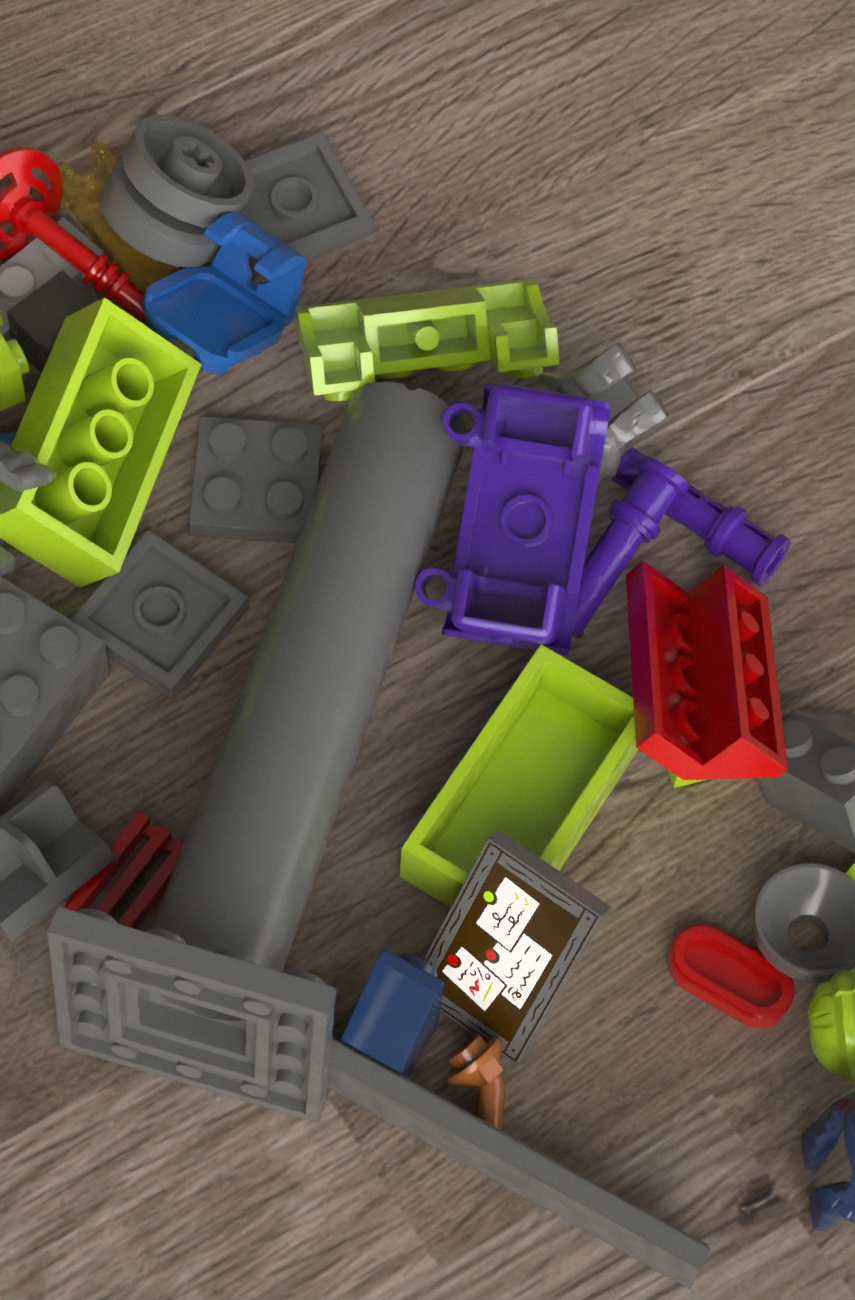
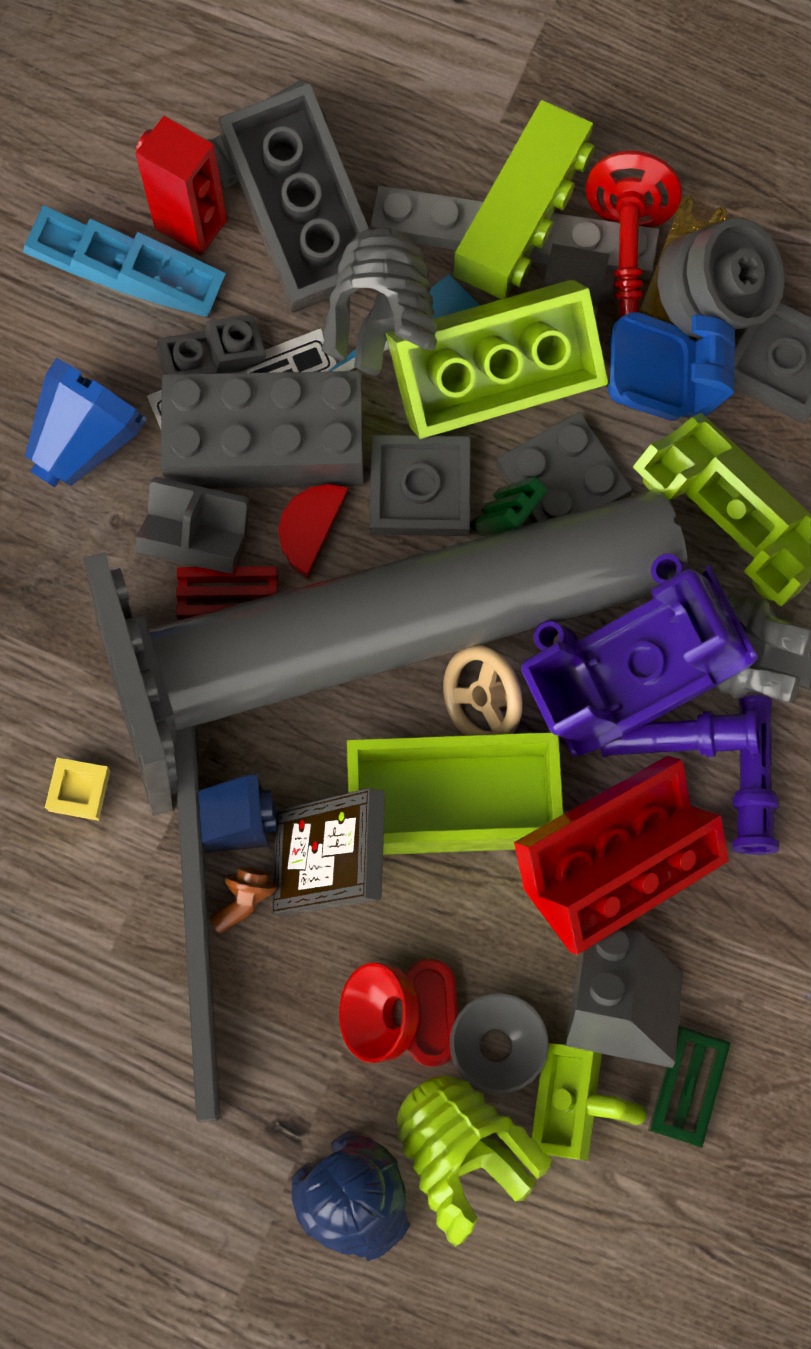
camera: 60 degrees right, 10 degrees up
(114, 754) = (308, 523): none -> red tile
(235, 1176) = (77, 789): none -> light yellow plate
(256, 536) = (503, 512): none -> dark green tile
(438, 668) = (492, 693): none -> tan piece
(690, 1038) = (368, 1008): none -> red piece

